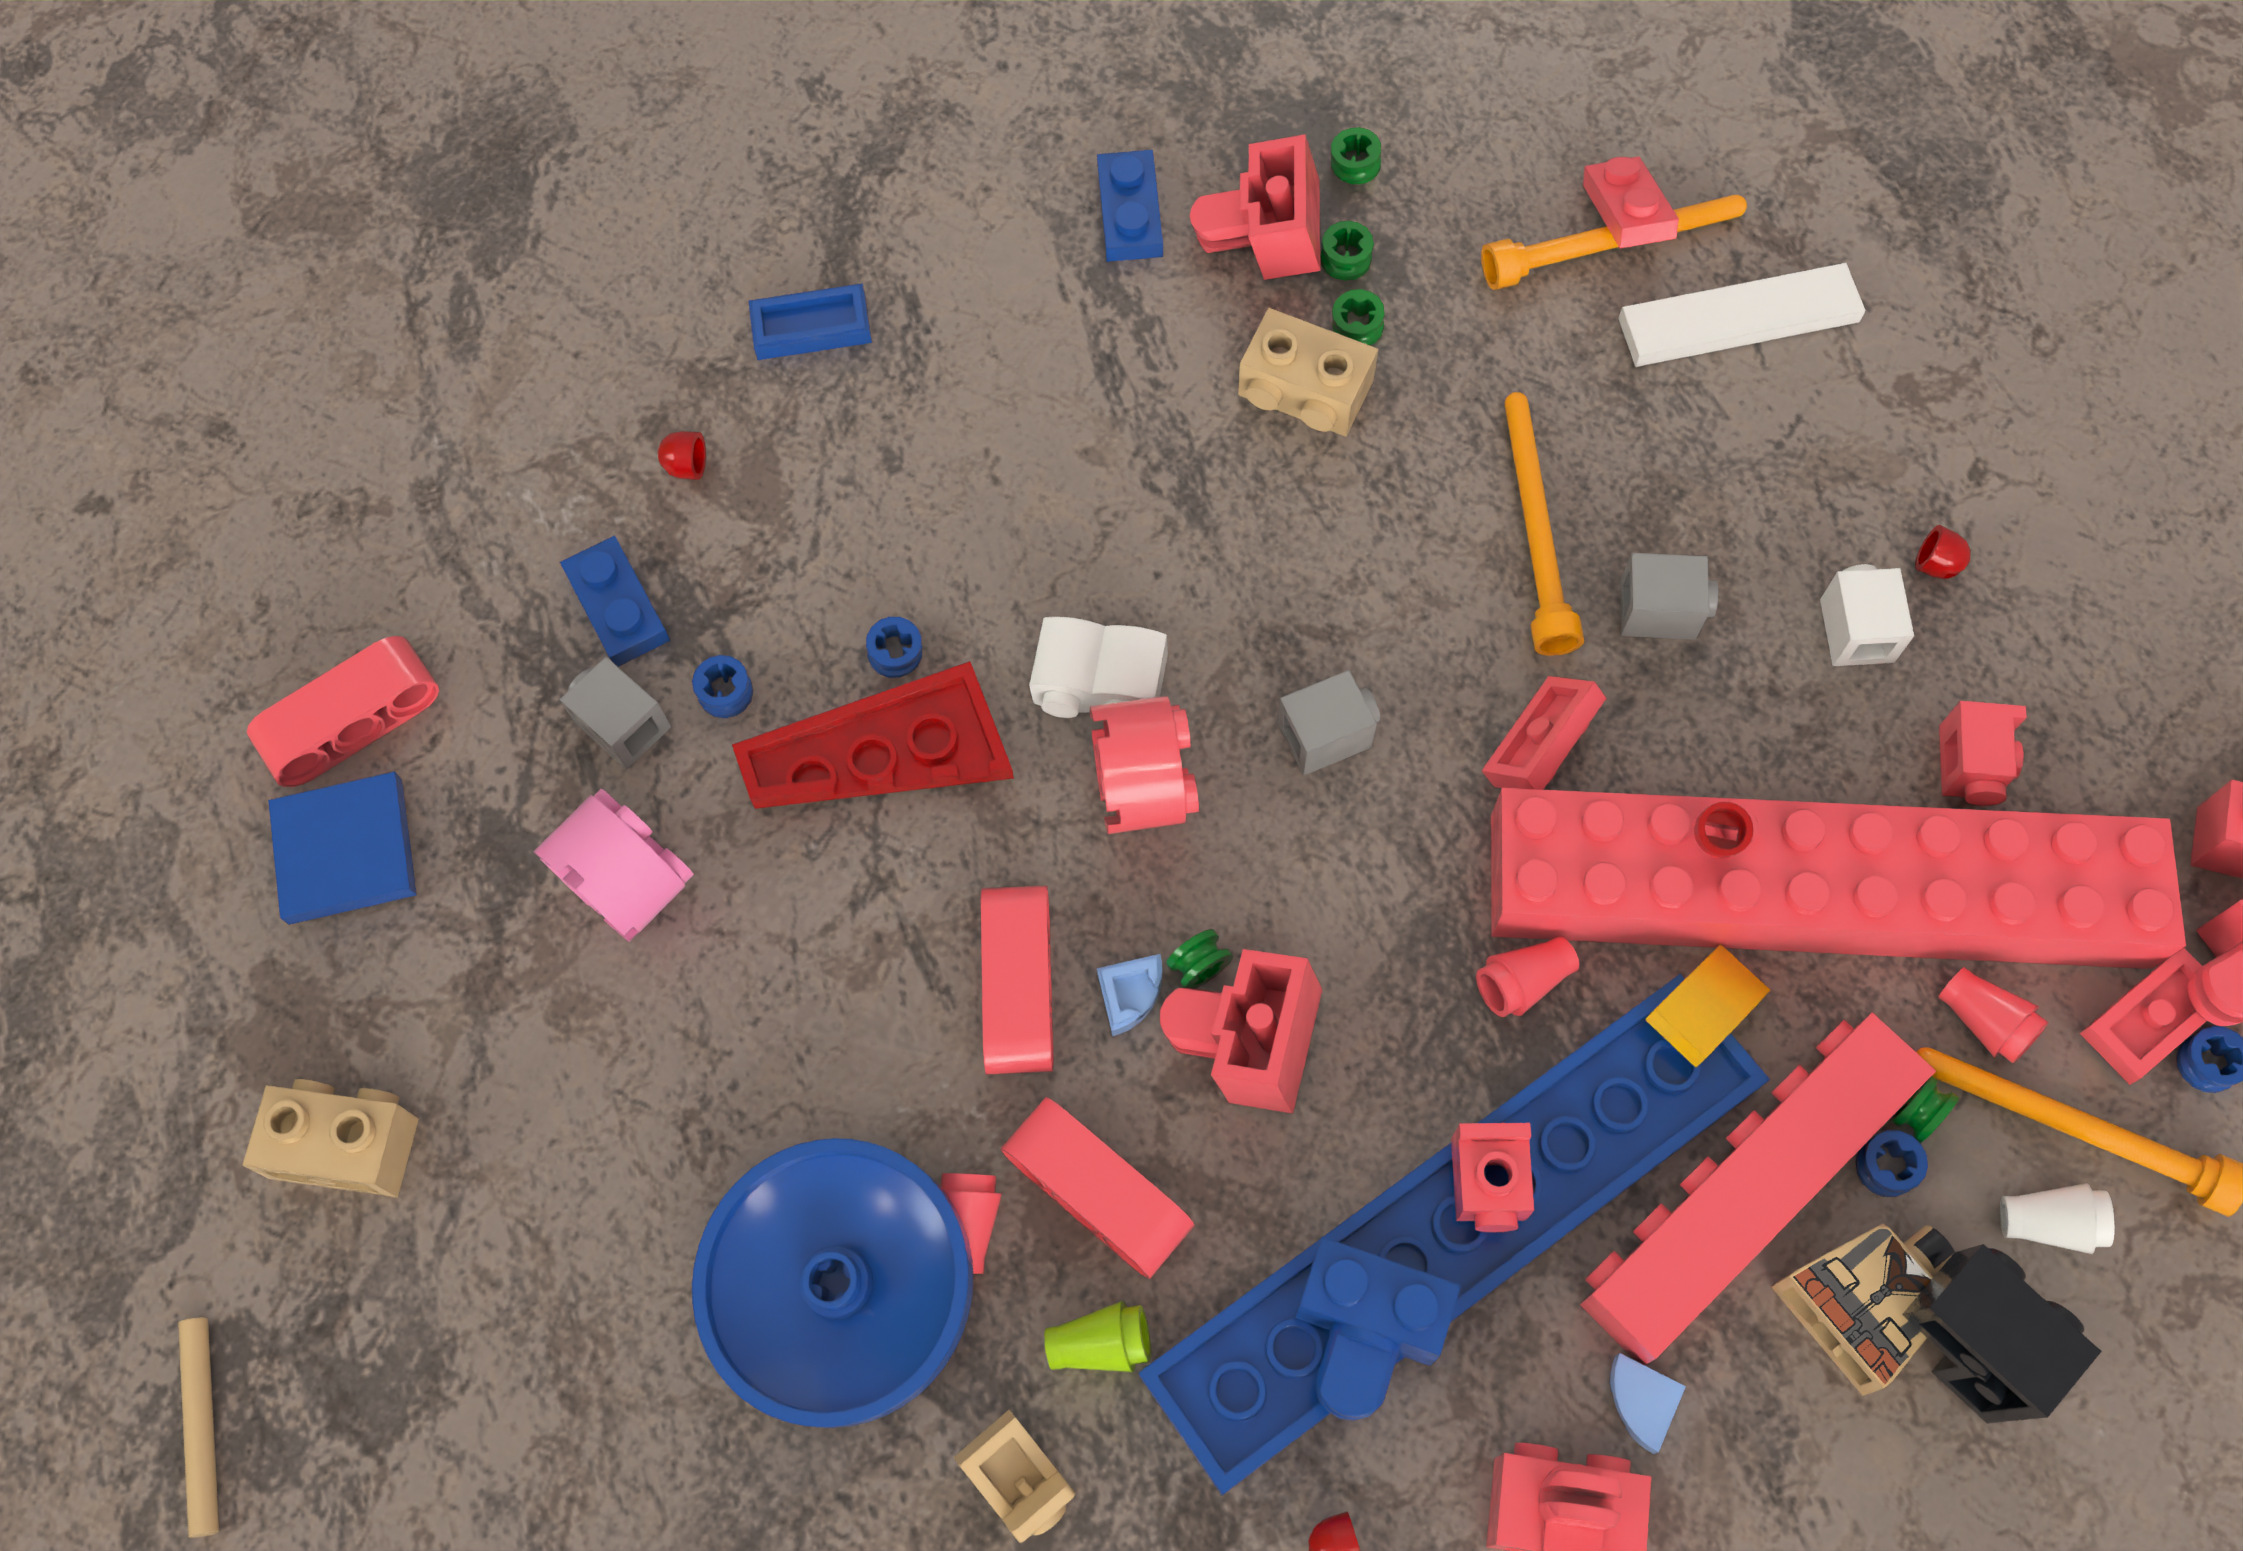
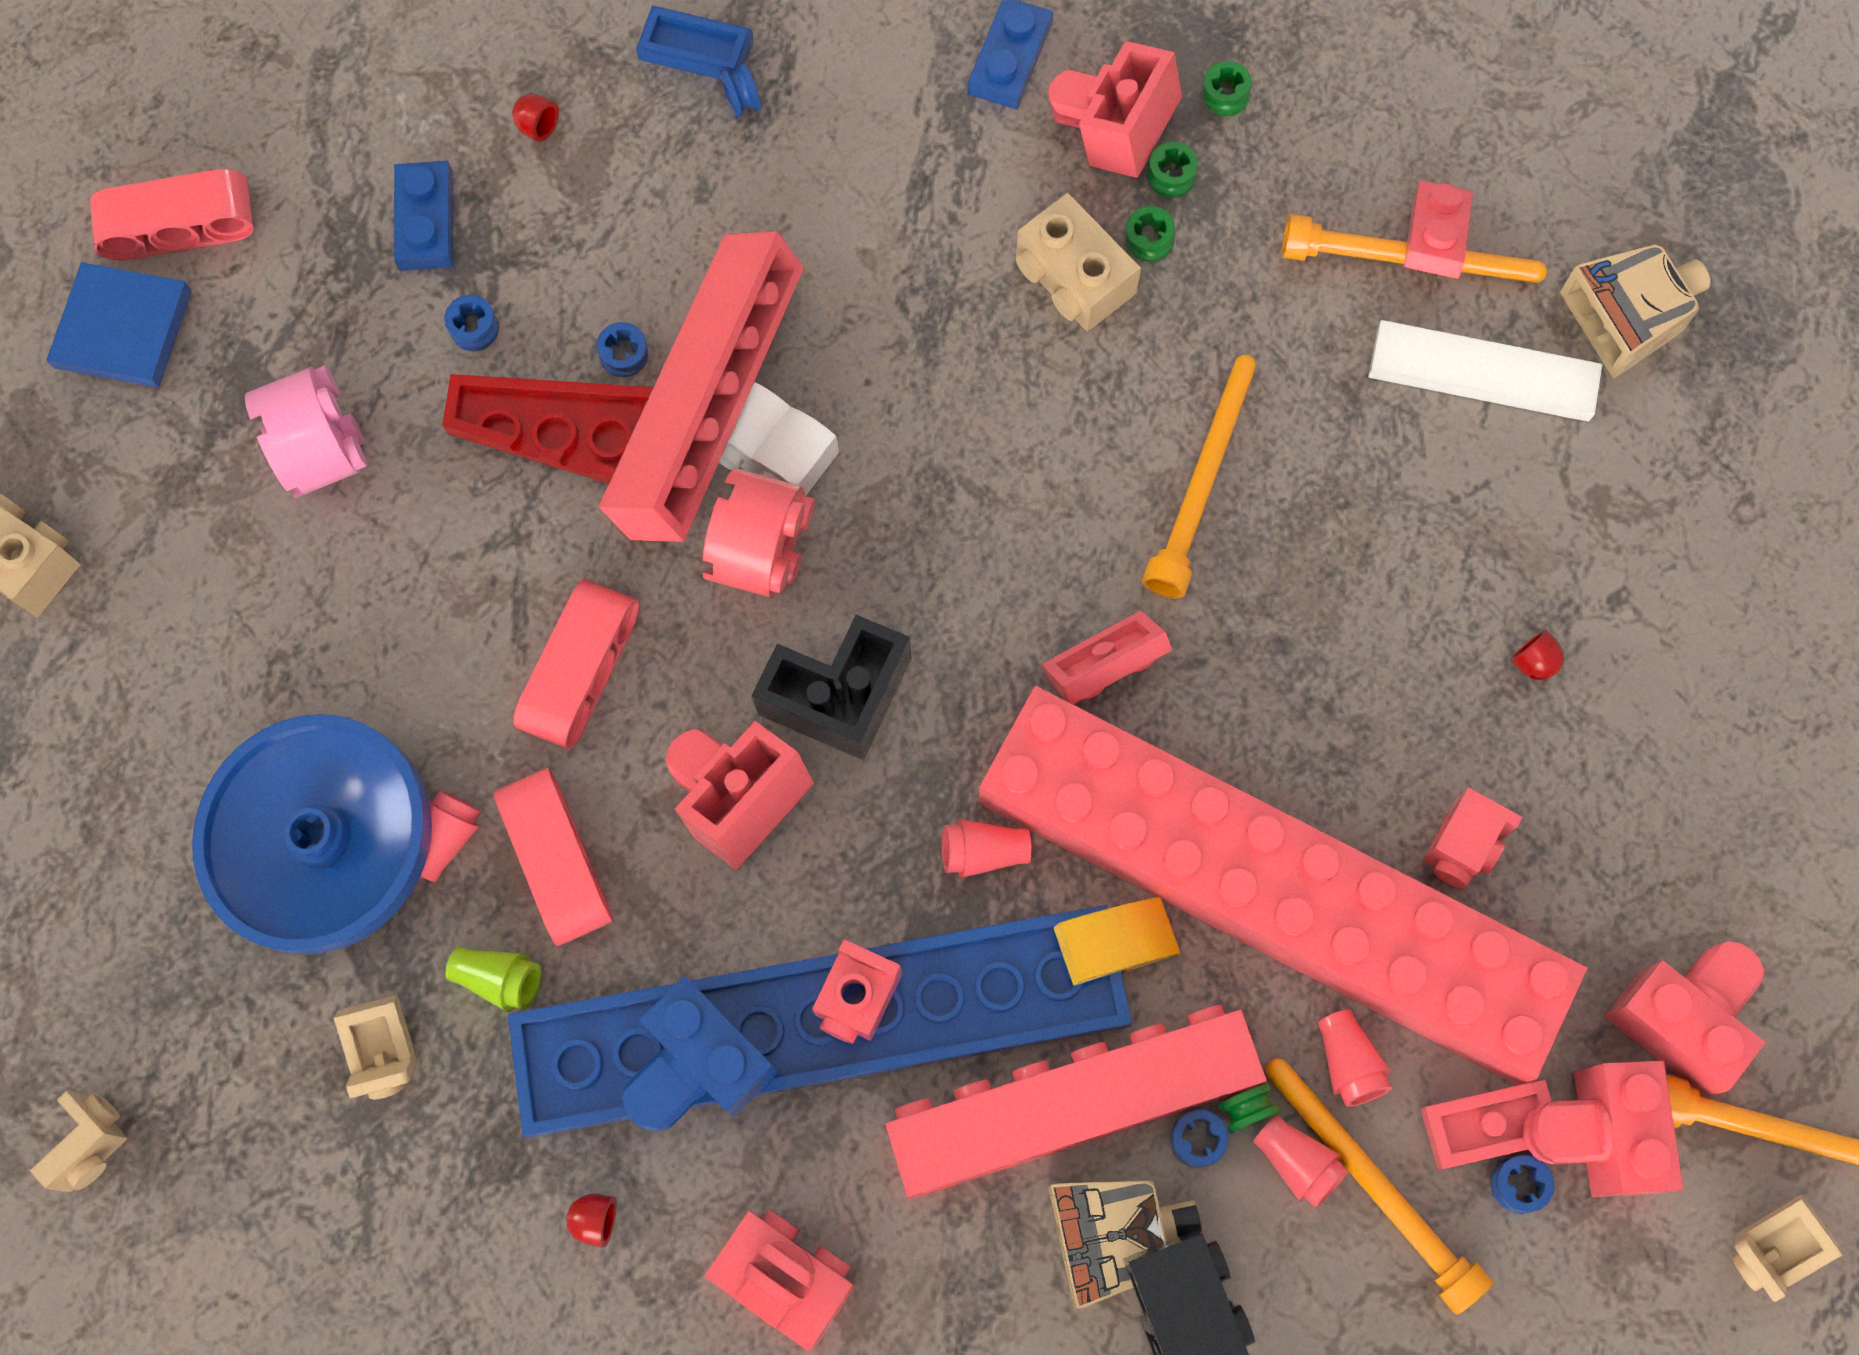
camera: 25 degrees right, 5 degrees up
(615, 712) = (375, 308): light grey brick -> none
(883, 345) = (740, 90): none -> blue bush
(1010, 646) = (702, 388): none -> coral brick
(1130, 991) = (663, 714): light blue tile -> none
(1199, 959) = (727, 713): green bush -> none
(1310, 895) = (838, 701): none -> black brick
(1328, 721) = (934, 567): light grey brick -> none
(1644, 1401) = (892, 1226): light blue tile -> none
(1666, 596) = (1275, 587): light grey brick -> none
(1724, 816) = (1178, 813): red hinge -> none
(1842, 196) = (1633, 303): none -> tan torso
(1866, 616) = (1438, 679): white brick -> none
(2004, 1137) = (1301, 1161): none -> coral cone
(2061, 1217) = (1310, 1247): white cone -> none

